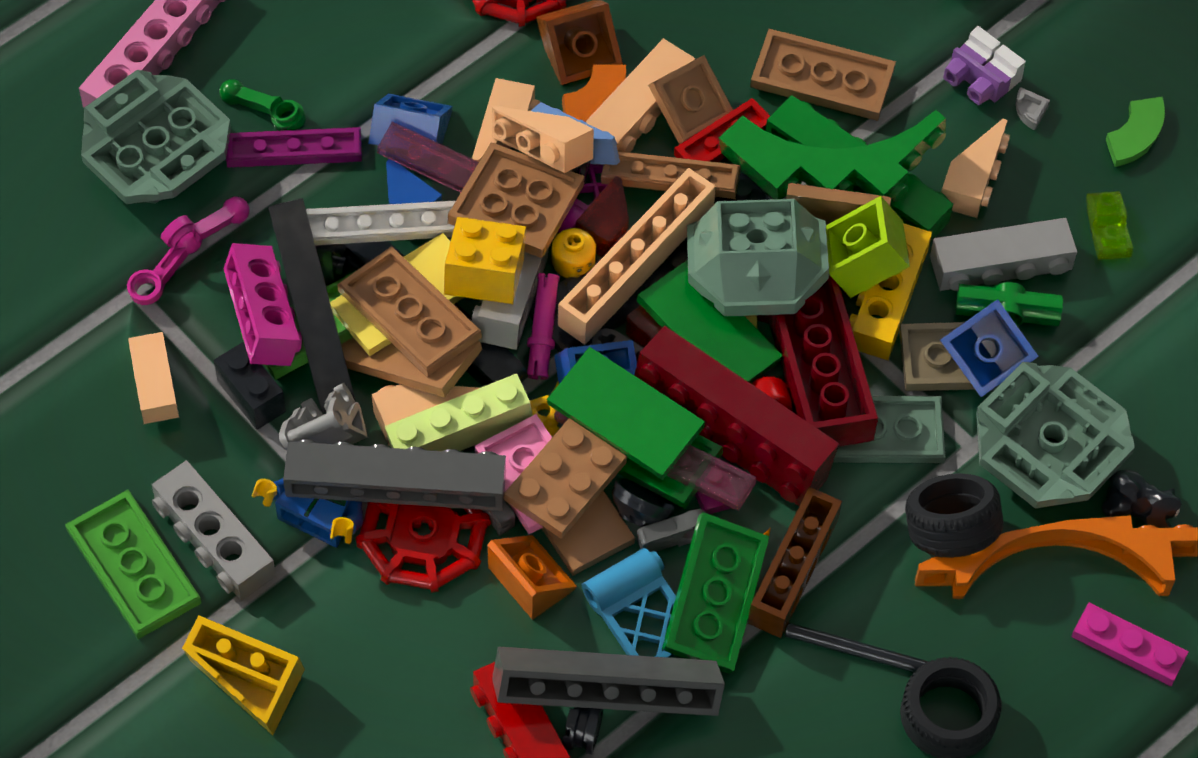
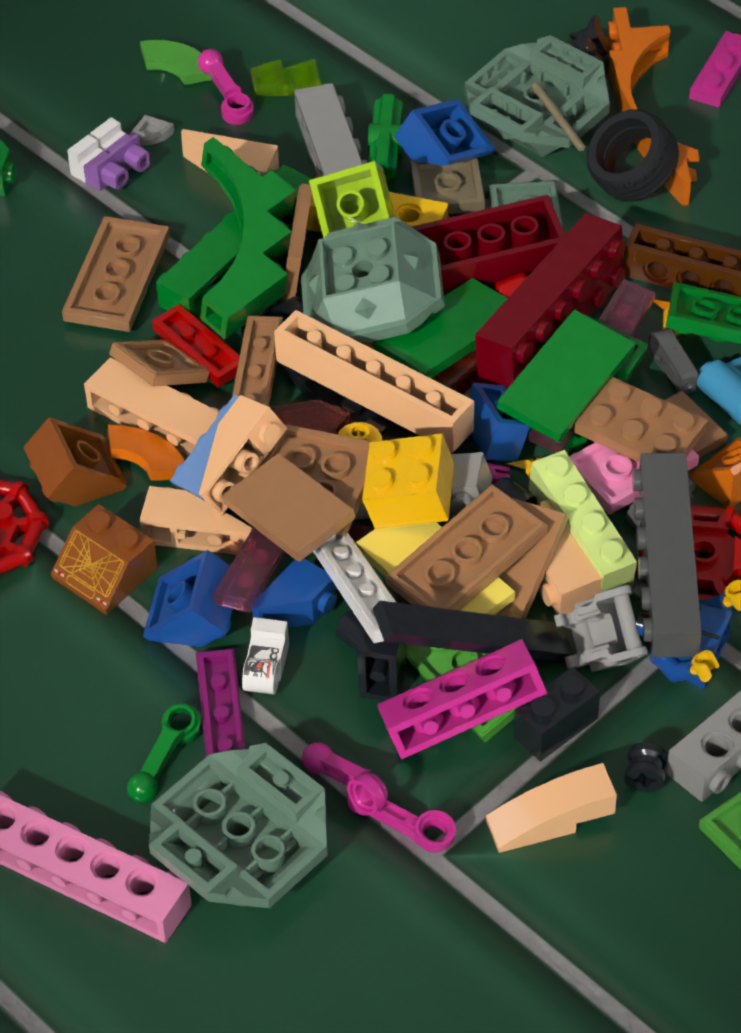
camera: 90 degrees left, 10 degrees down
(185, 448) = (646, 767): none -> black wheel
(344, 175) = (265, 655): none -> white leg
(469, 63) = (104, 559): none -> dark orange slope
(473, 172) = (288, 507): none -> medium nougat tile
(639, 504) = (655, 375): black piece -> none
(1017, 445) = (558, 116): none -> dark tan axle
(1122, 154) = (211, 63): none -> dark pink piece

